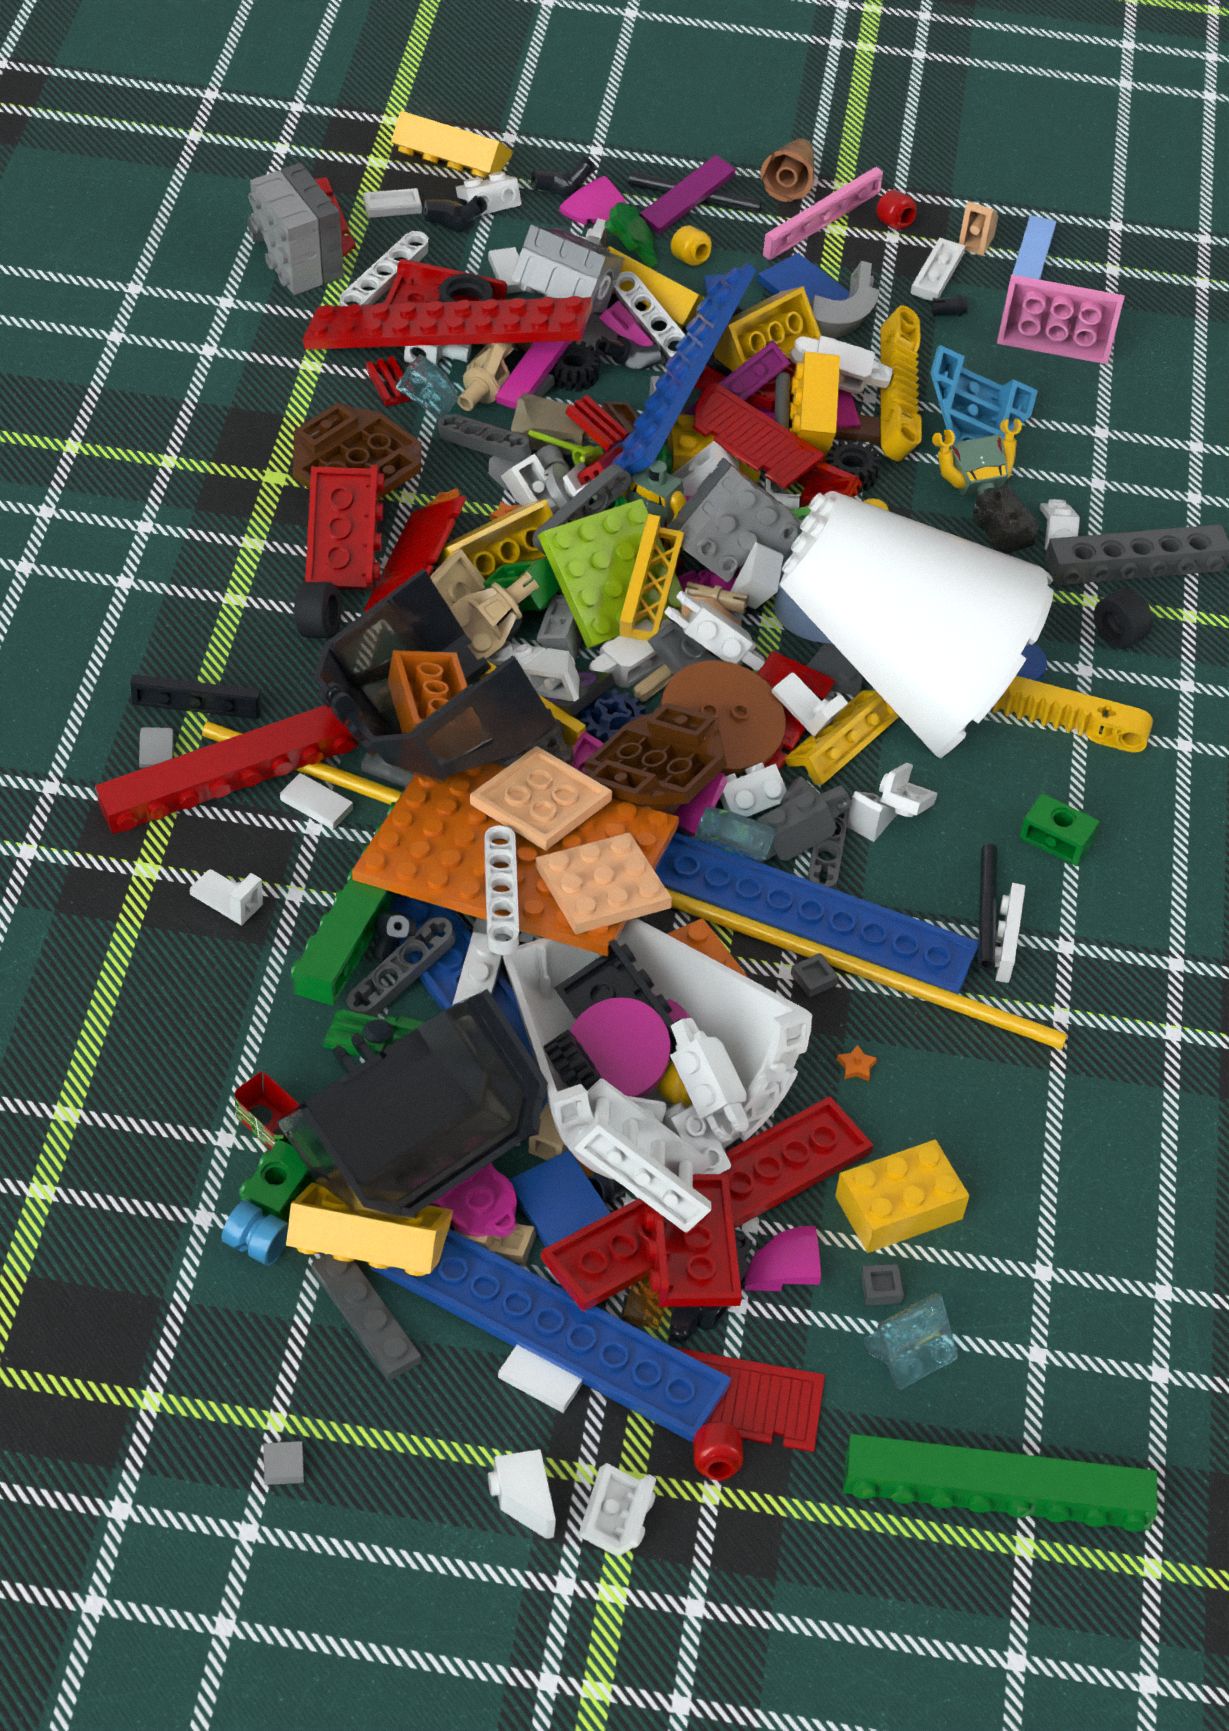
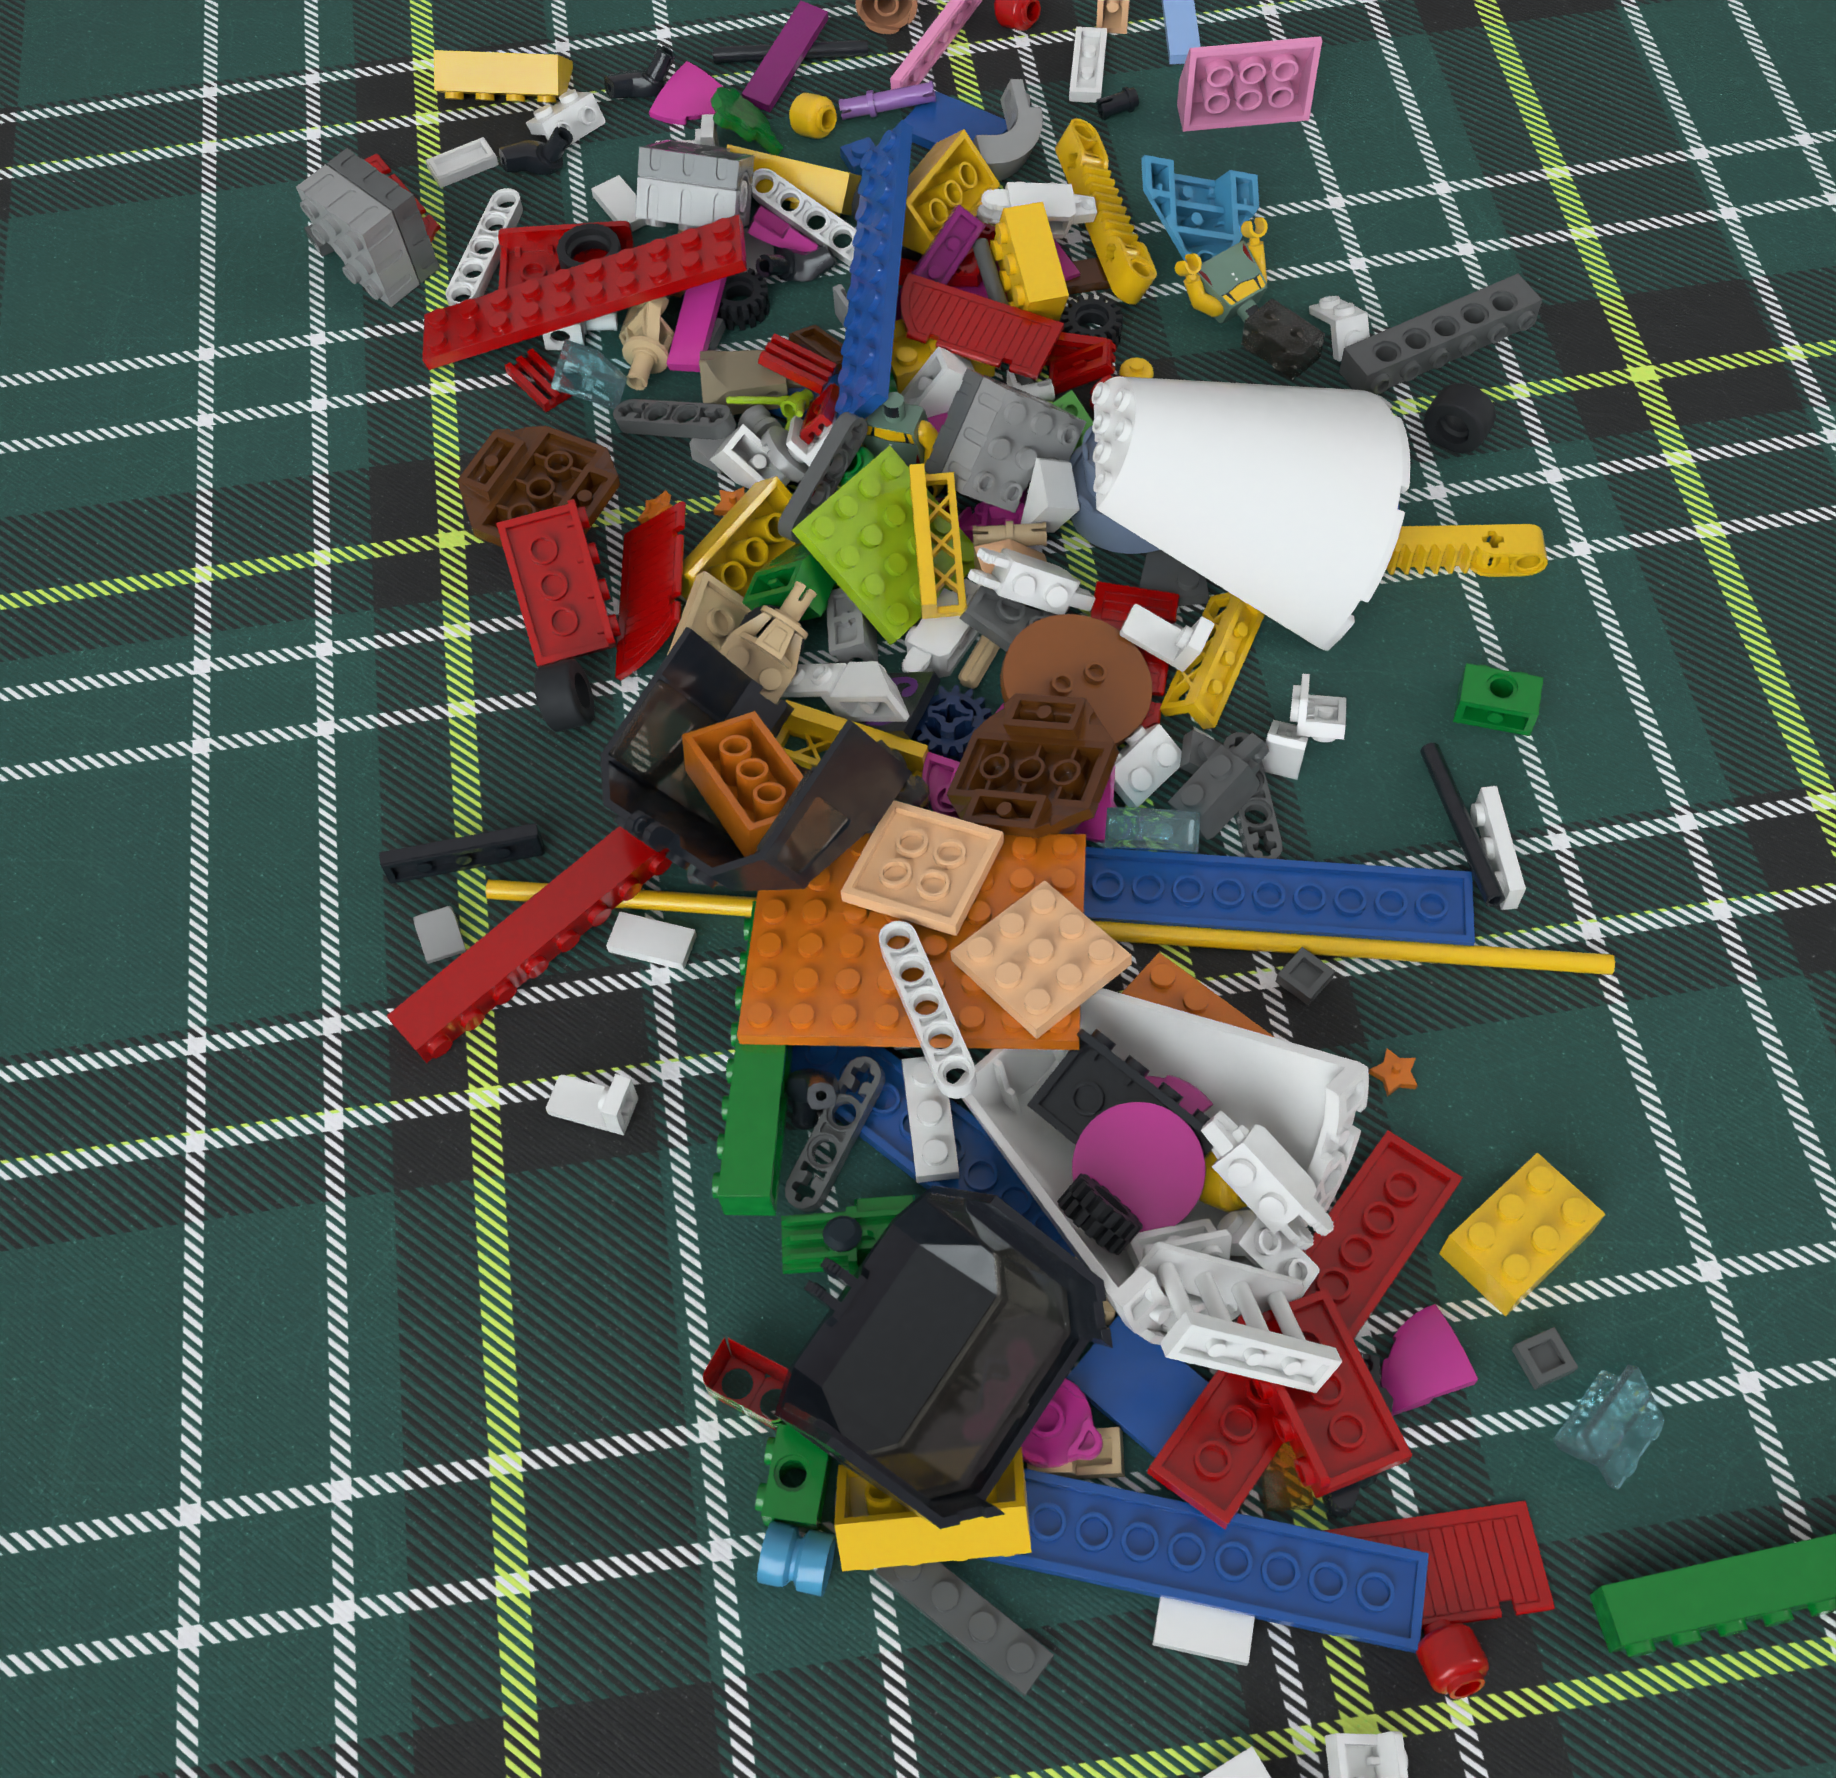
camera: 10 degrees left, 10 degrees up
(761, 251) = (873, 103): none -> medium lavender pin

